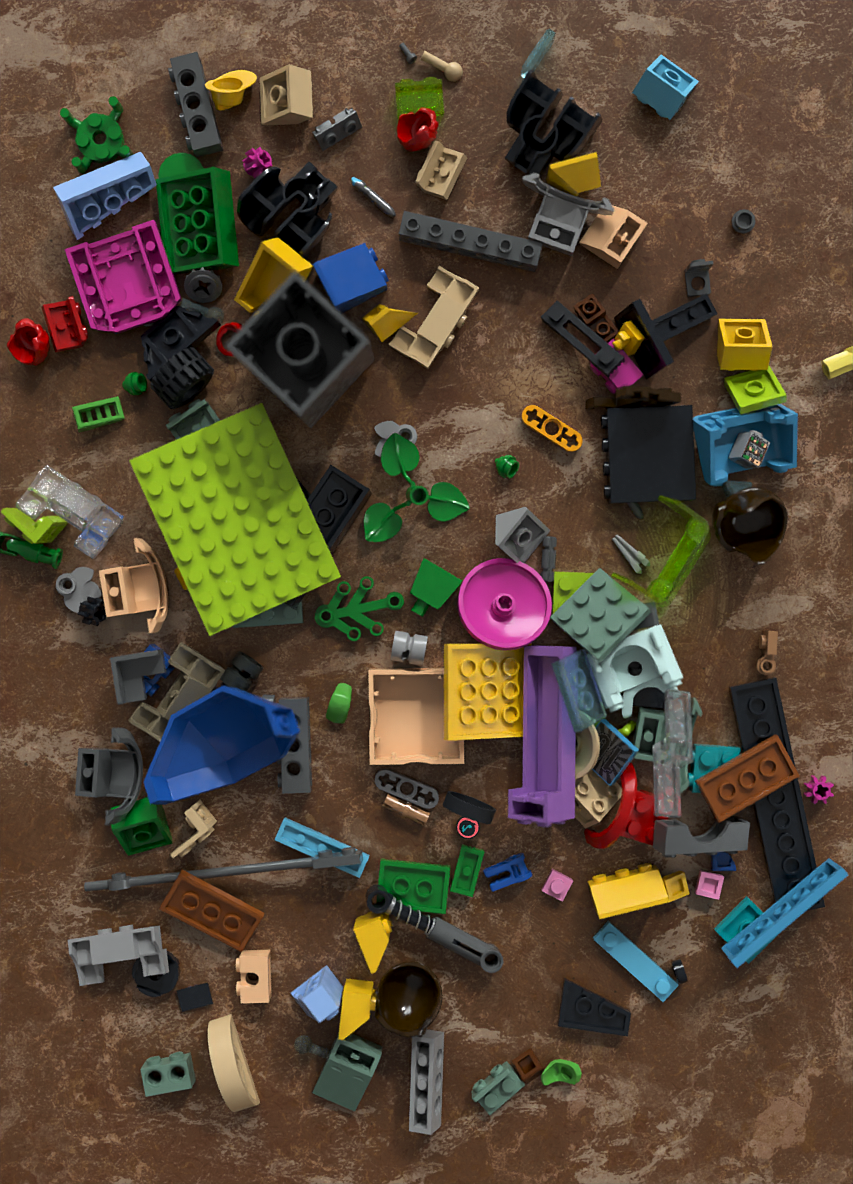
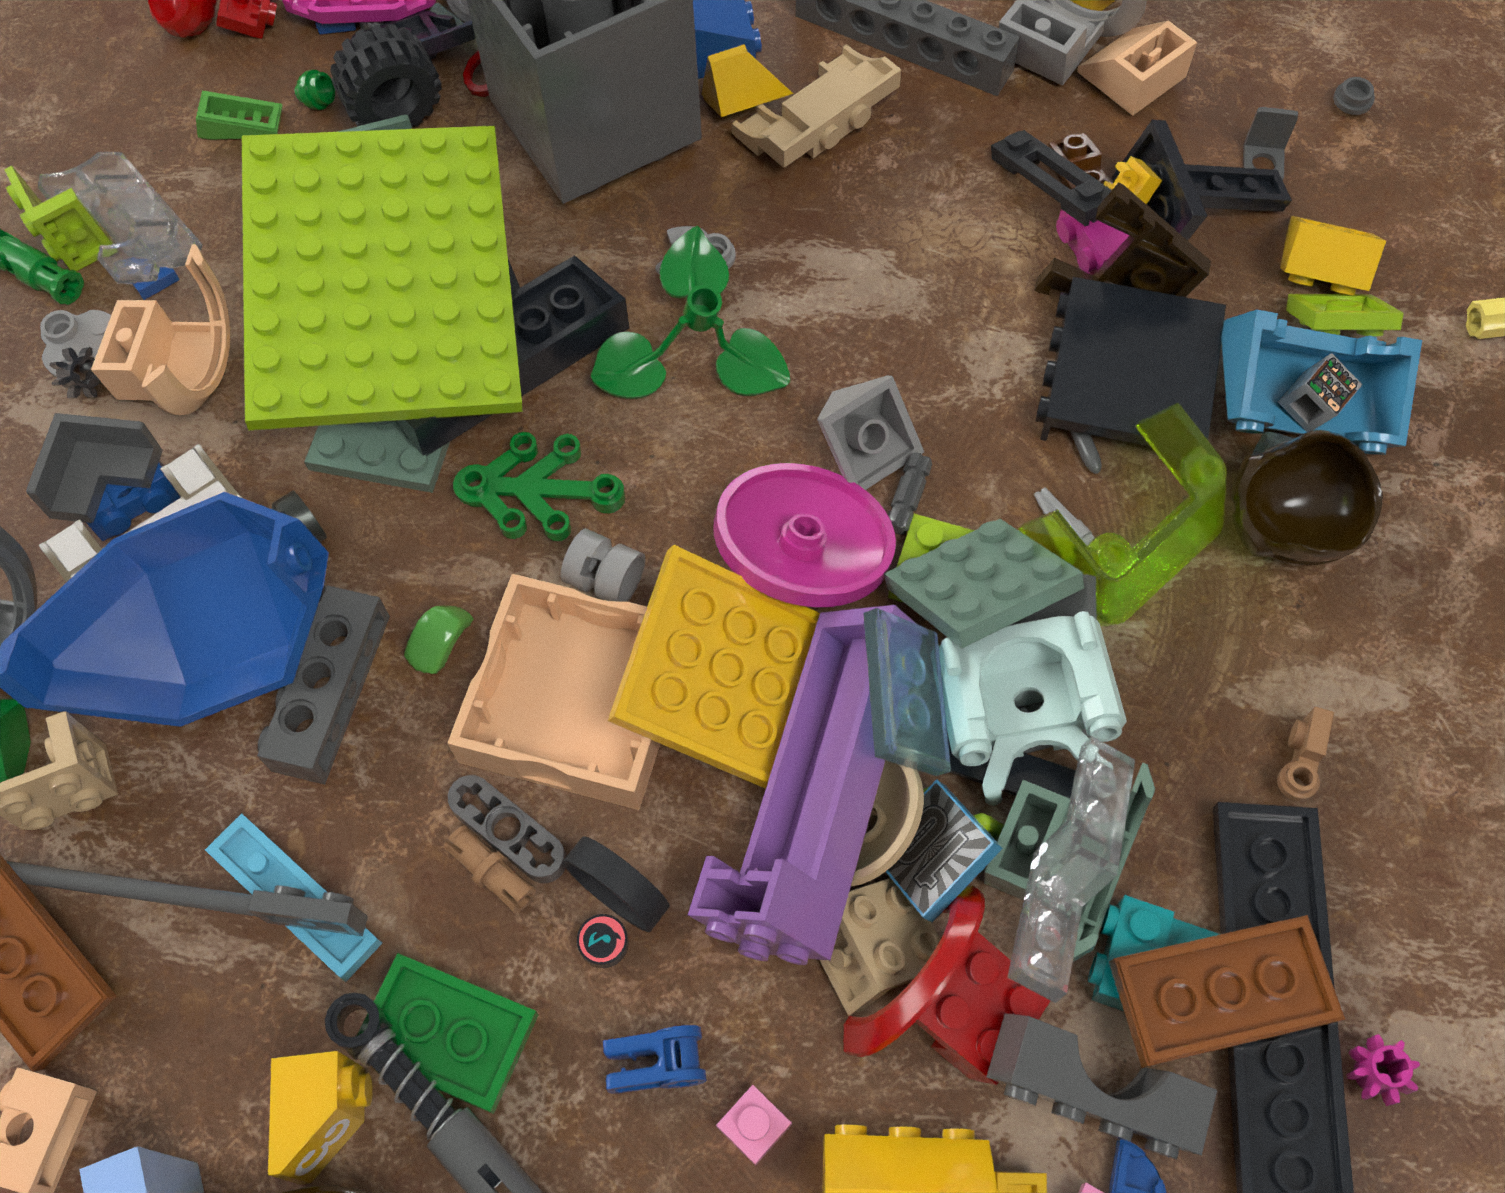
camera: 15 degrees right, 25 degrees down
(432, 587) = (681, 480): green torso -> none
(467, 870) = (569, 1032): green plate -> none
(507, 466) = (875, 332): green plate -> none
(563, 442) = (972, 317): light orange beam -> none

